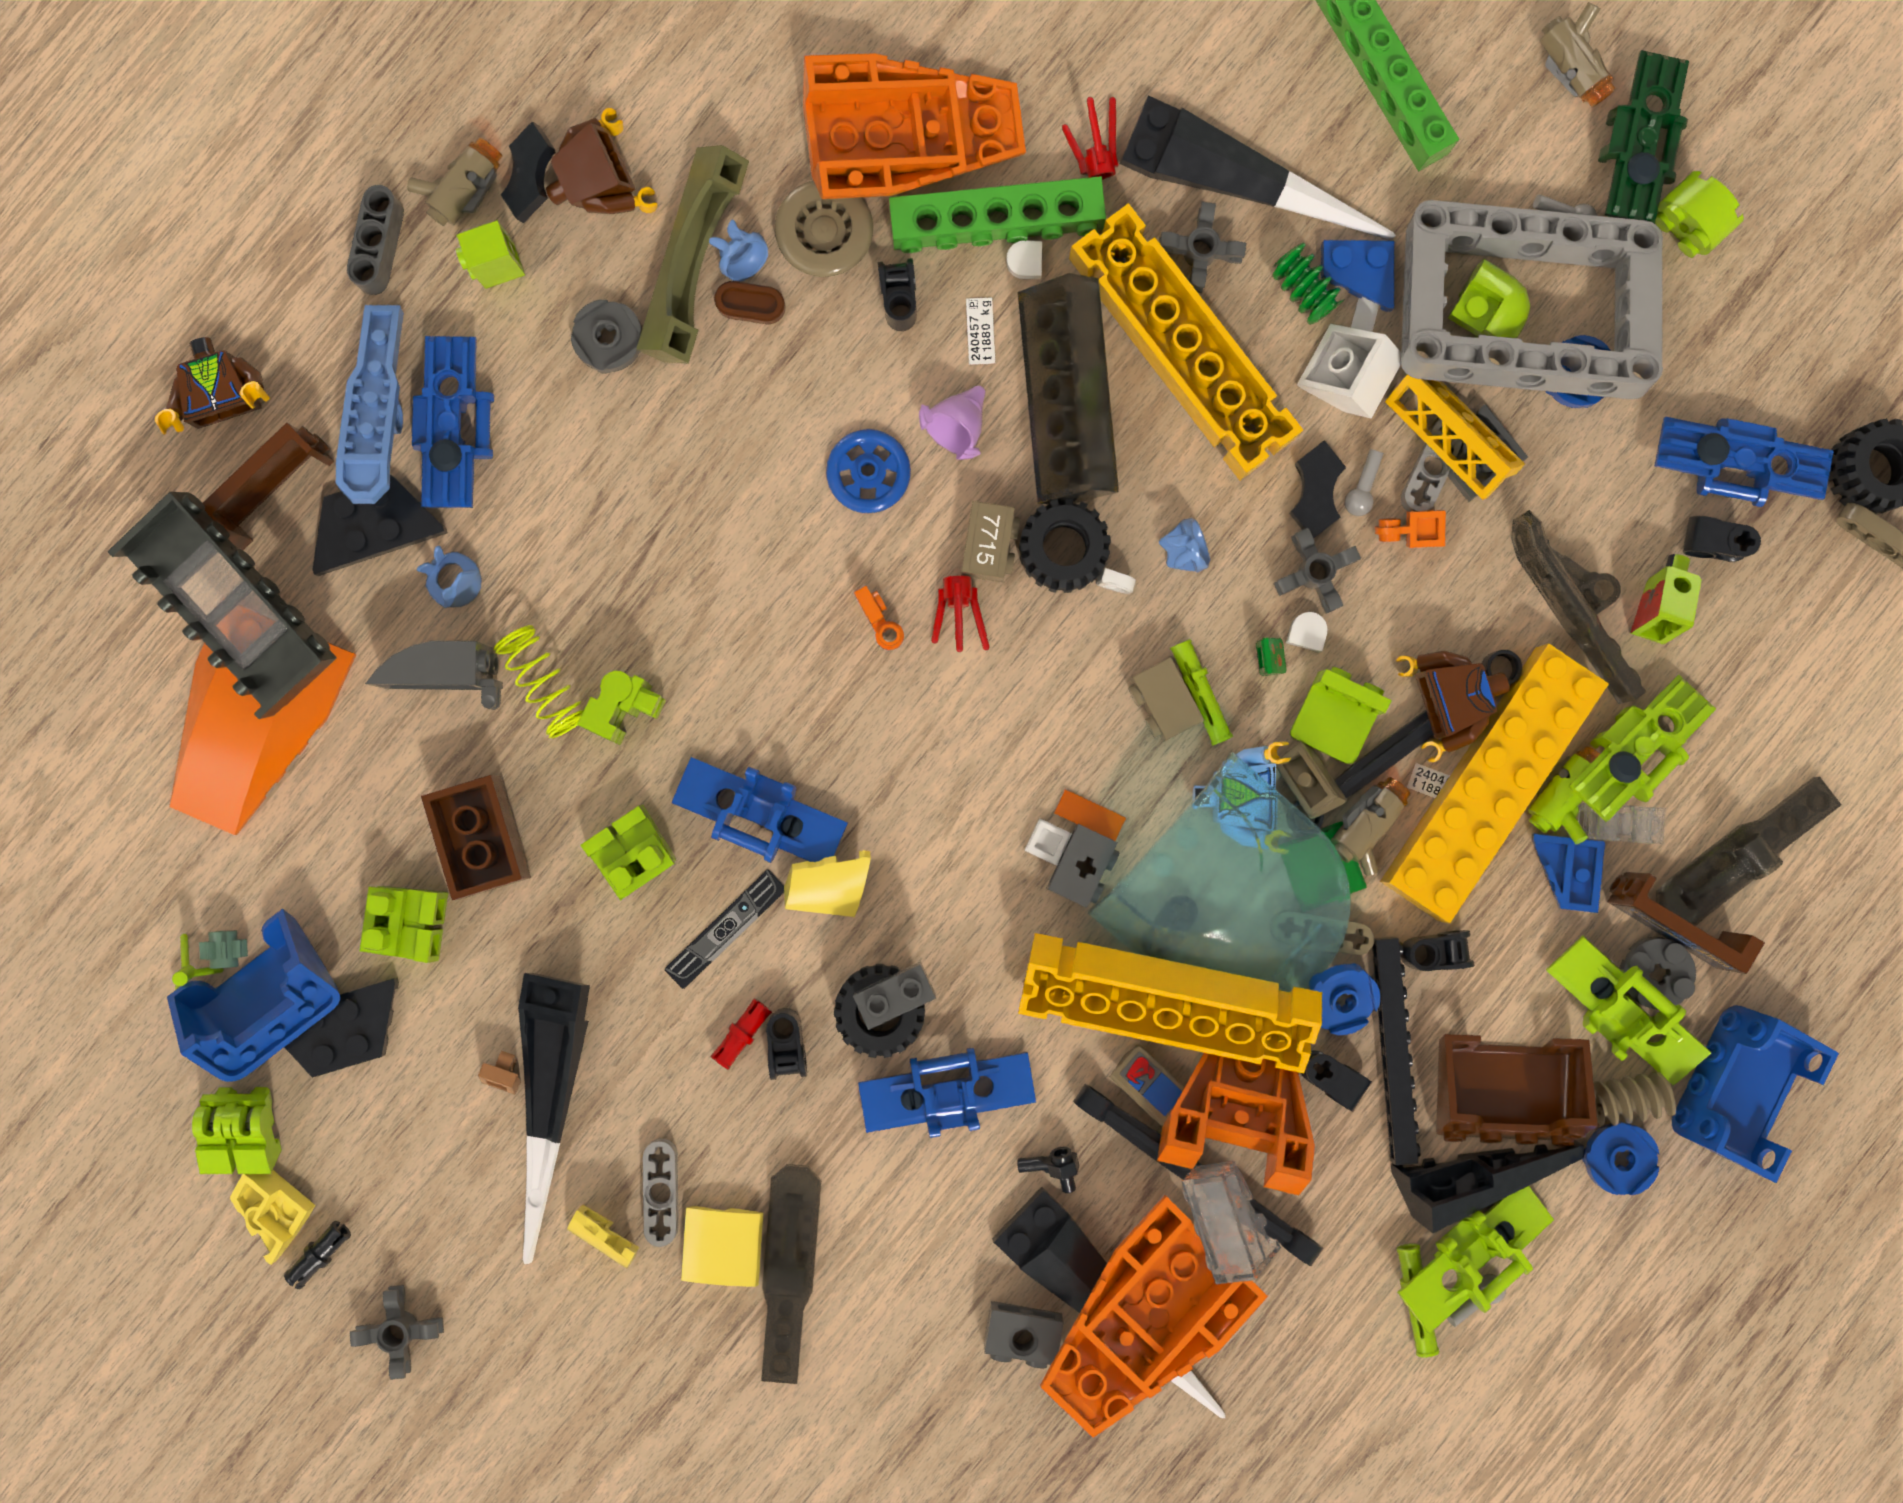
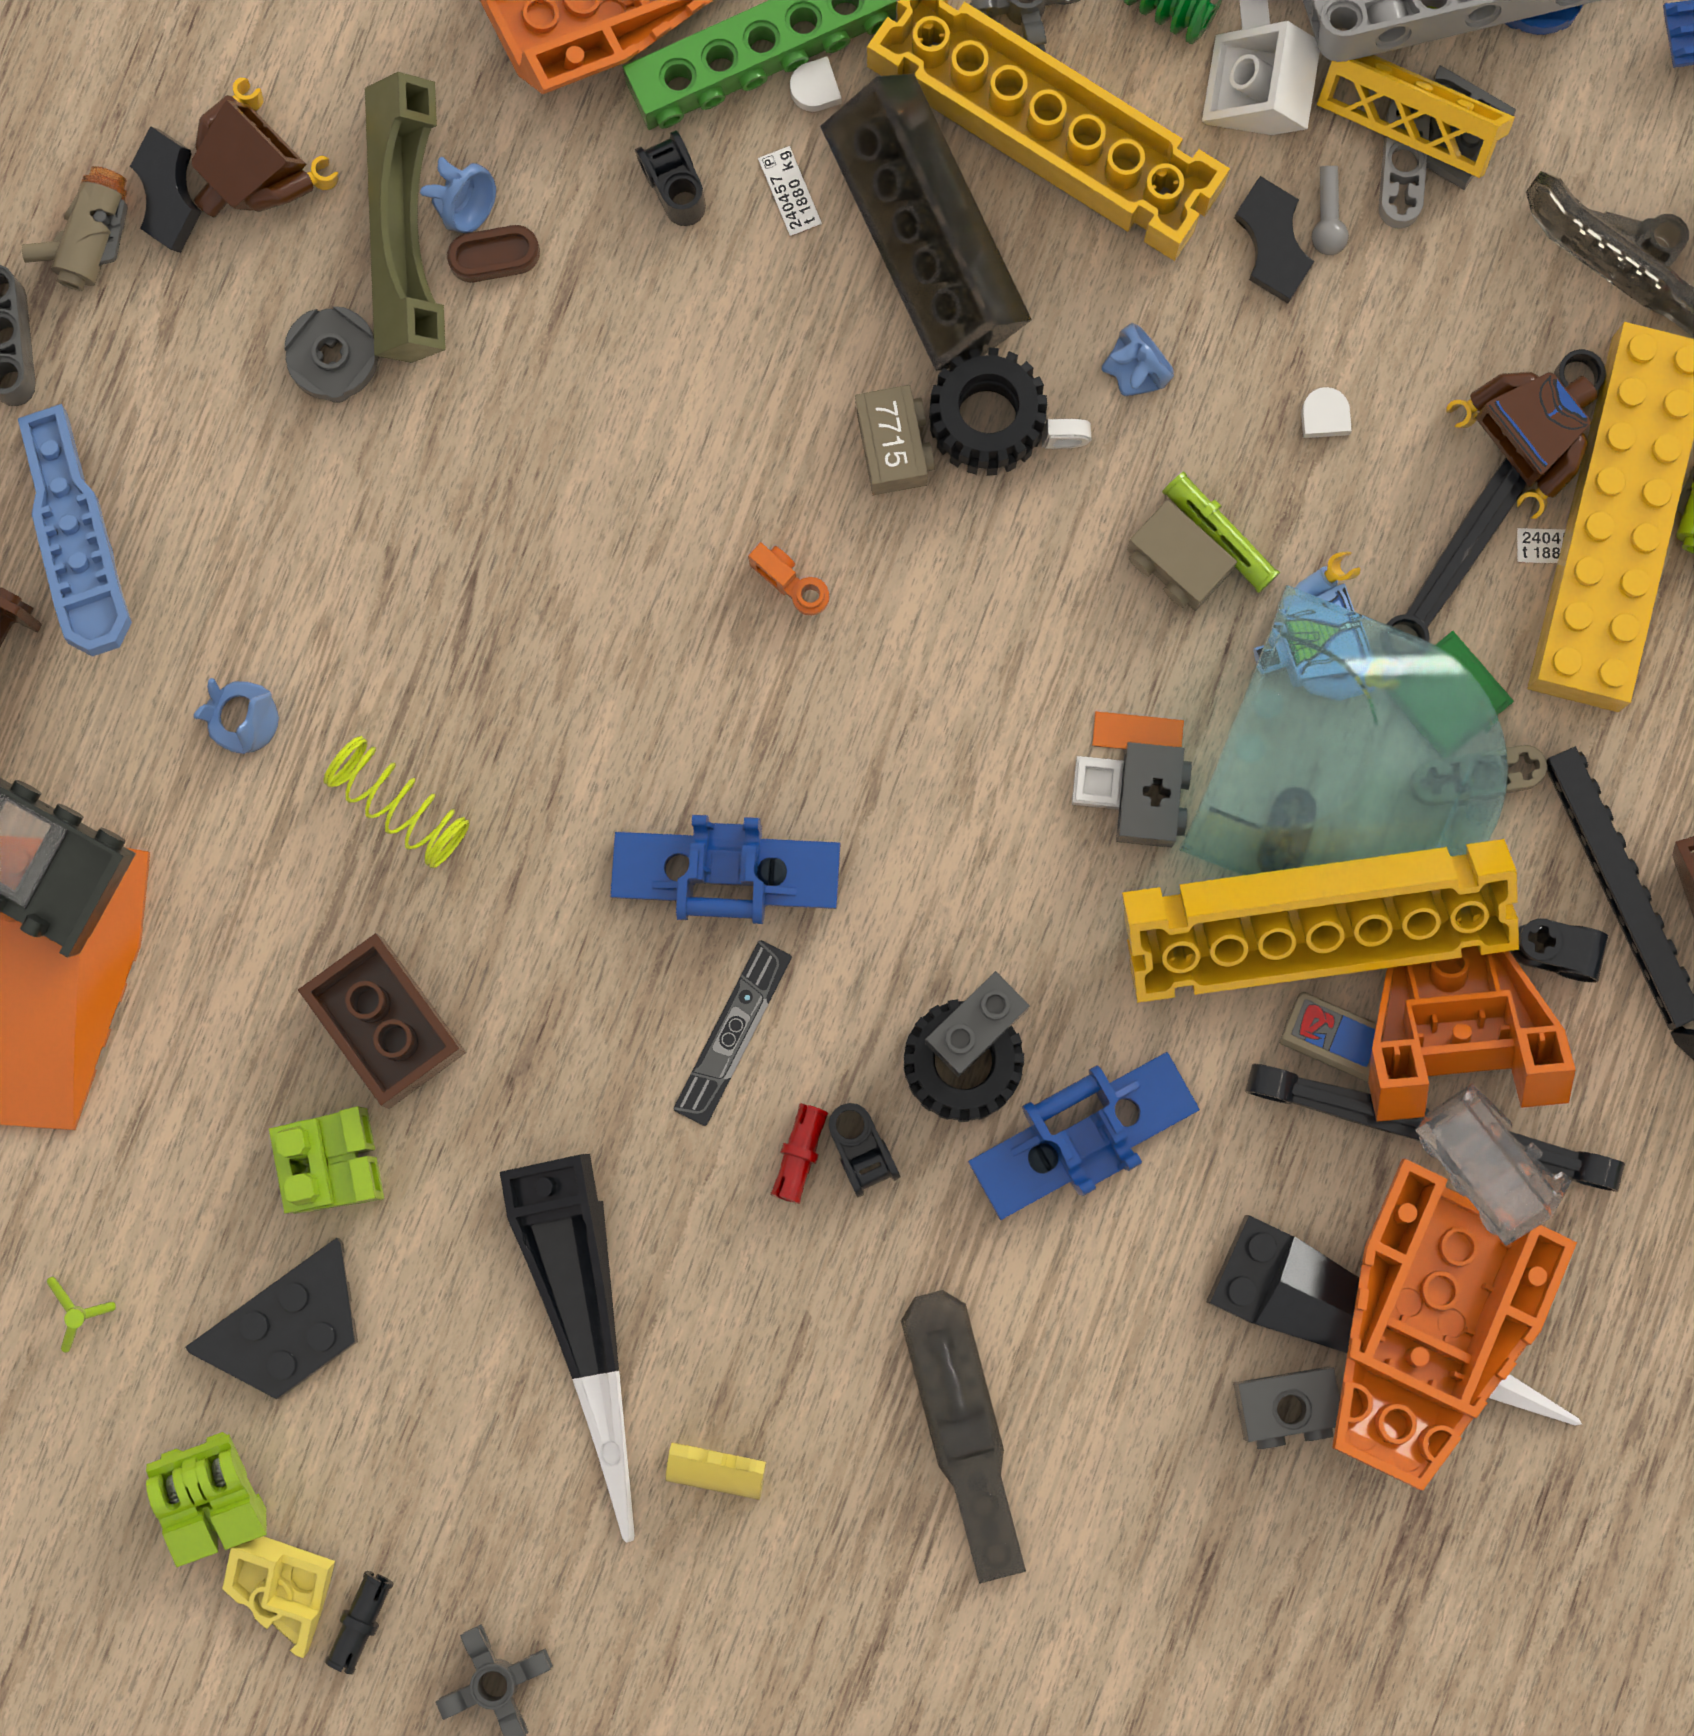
camera: 10 degrees left, 5 degrees down
(223, 949) = (109, 1274): sand green gear -> none
(258, 1007) = (179, 1328): blue windscreen -> none
(364, 531) = (112, 691): black wing -> none
(437, 423) = (158, 530): blue piece -> none
(443, 667) = (268, 825): dark grey piece -> none
(489, 255) = (154, 303): lime brick -> none
(501, 1075) = (515, 1311): medium nougat tile -> none
(619, 696) = (506, 782): lime hips -> none
(632, 853) = (565, 980): lime hips -> none
(670, 1219) = (790, 1420): light grey beam -> none
(722, 1246) = (869, 1430): light yellow slope -> none
(823, 231) = (554, 136): dark tan wheel -> none
(827, 885) = (843, 927): light yellow slope -> none
(885, 495) = (743, 427): blue plate -> none
(956, 422) = (800, 309): lavender hat -> none
(957, 593) = (877, 516): red plant -> none
(1060, 1165) = (1258, 1175): black piece -> none
(1271, 656) = (1290, 459): green slope -> none
(1310, 781) = (1395, 592): dark tan slope -> none
(1327, 593) = (1334, 360): dark grey pin -> none
(1338, 714) = (1400, 499): lime bracket -> none
(1346, 980) = (1558, 849): blue plate -> none
(1369, 821) = (1484, 616): dark tan piece -> none
(1421, 529) = (1418, 240): orange plate -> none
(1444, 951) = (1636, 744): black piece -> none

